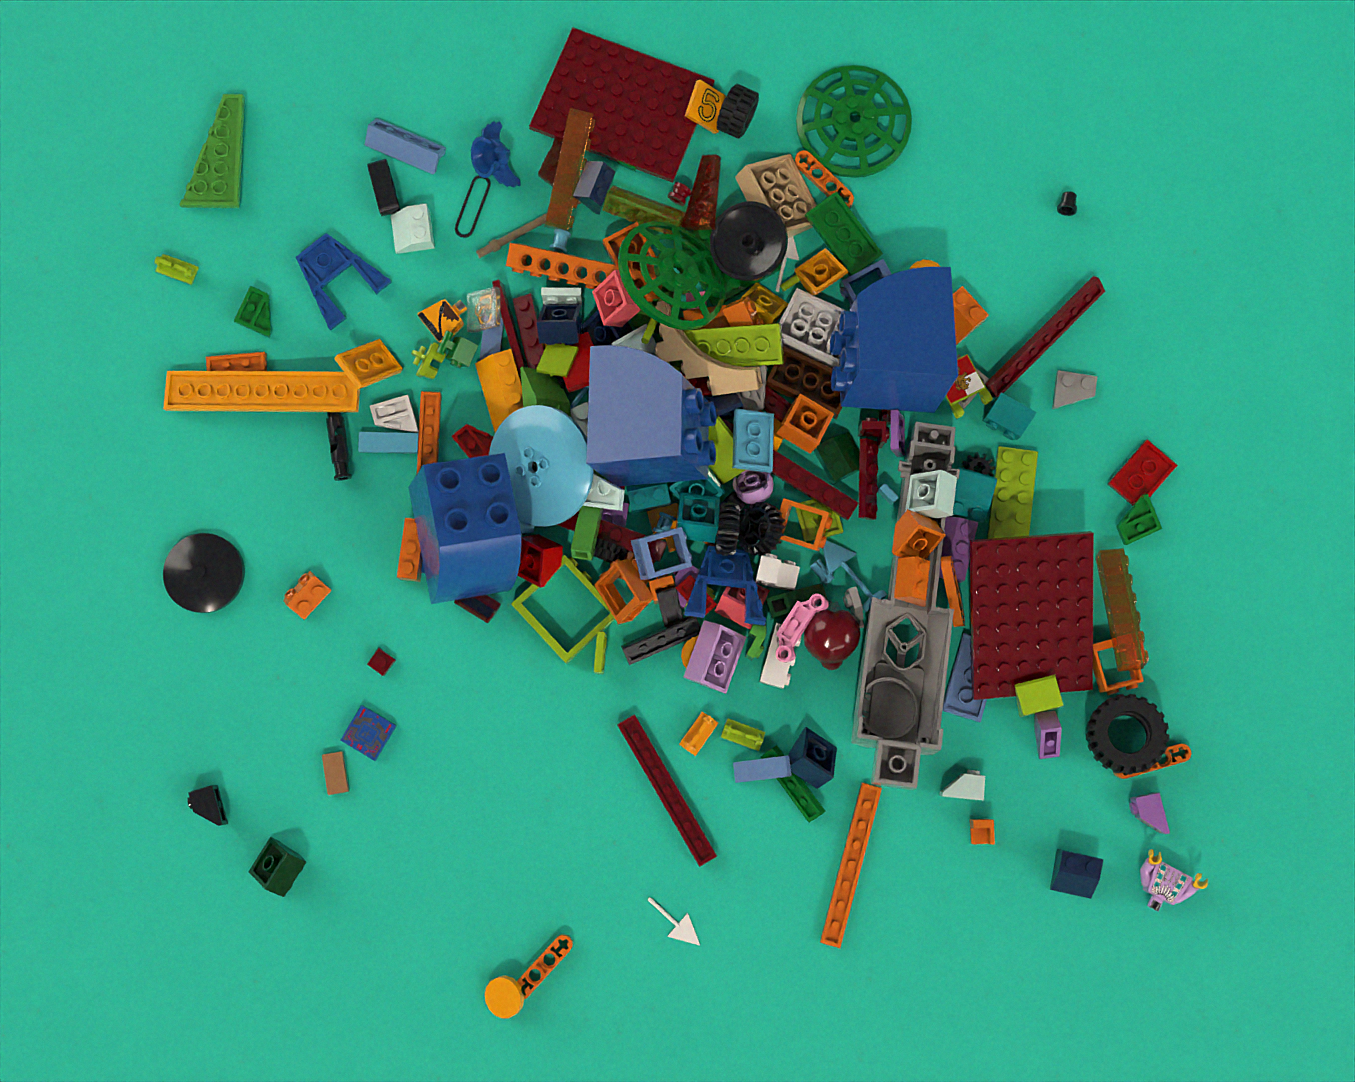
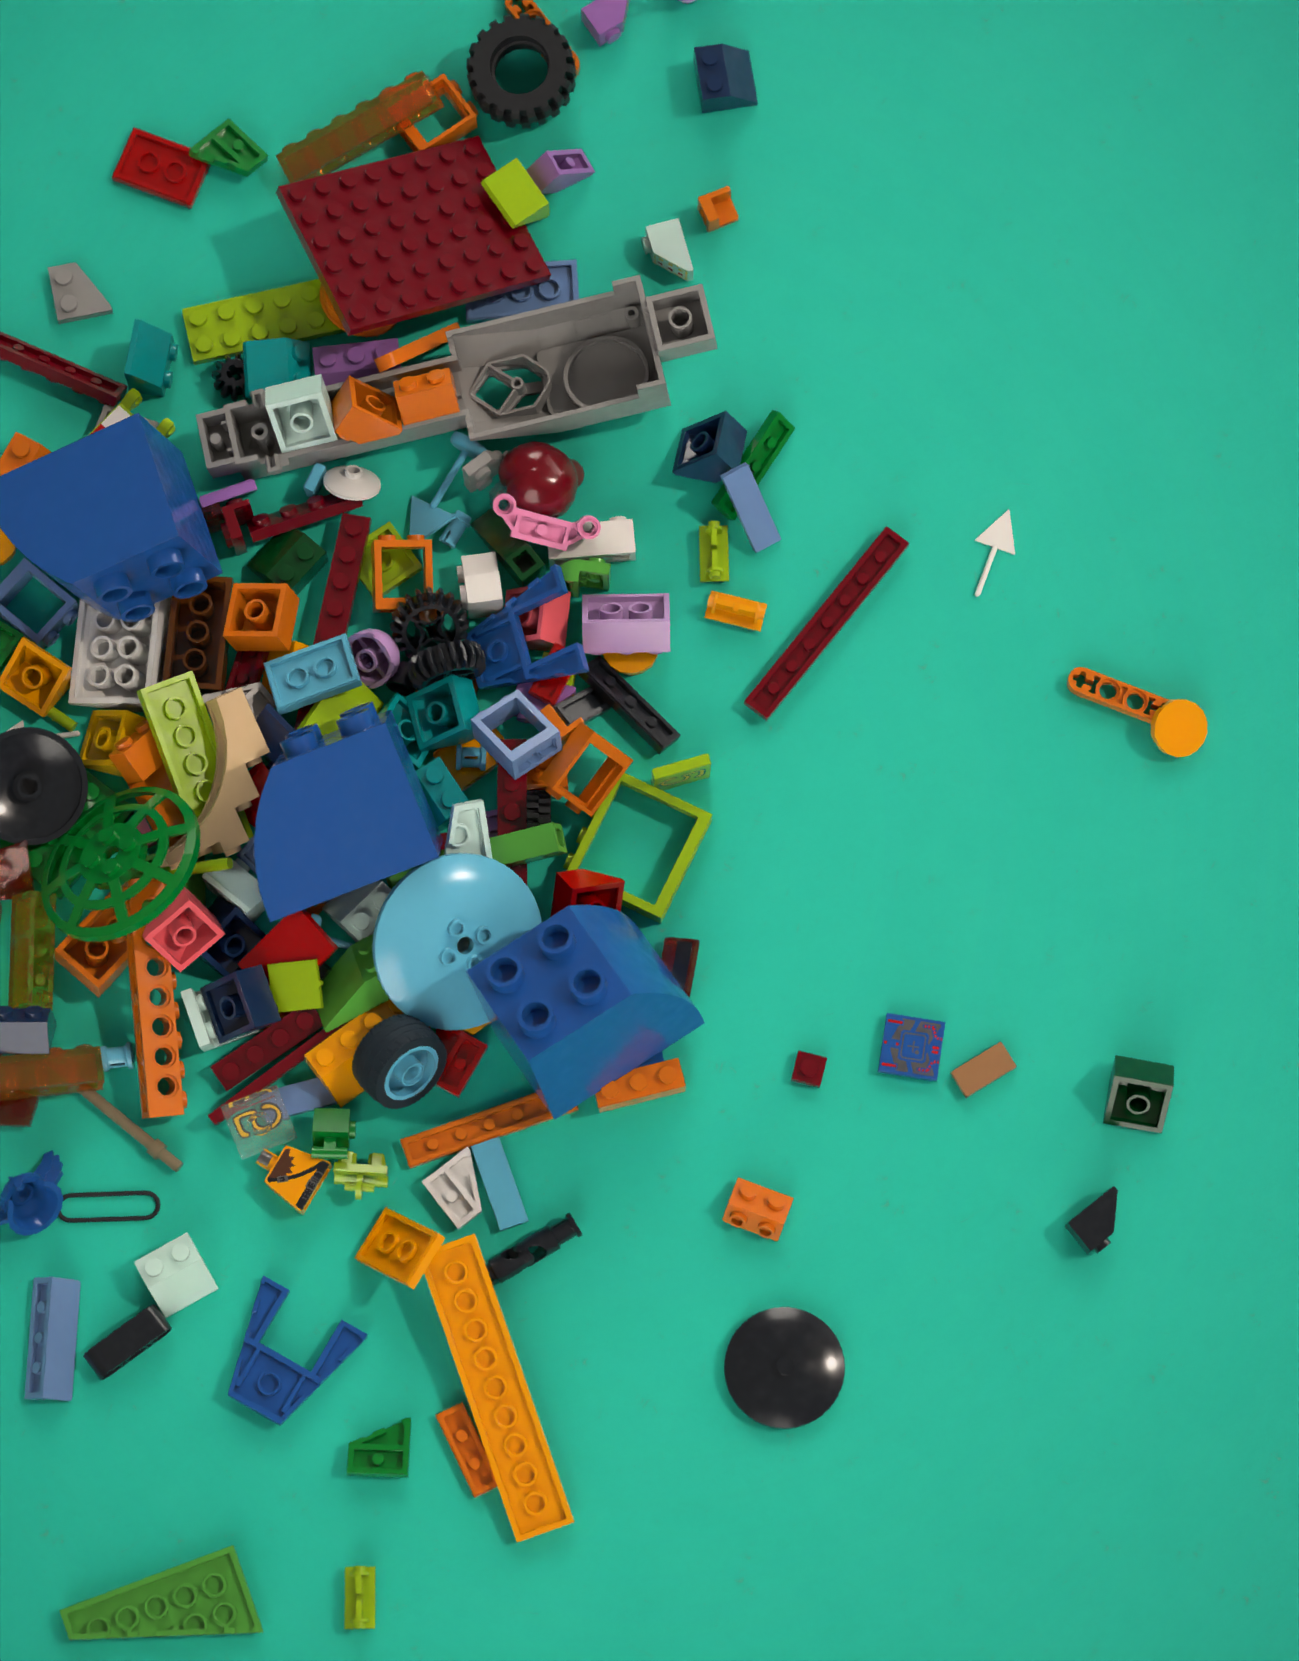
camera: 115 degrees left, 5 degrees down
(481, 403) = (399, 1061): none -> black wheel
(850, 865) = (827, 357): orange tile -> none
(877, 516) = (352, 482): none -> white dish

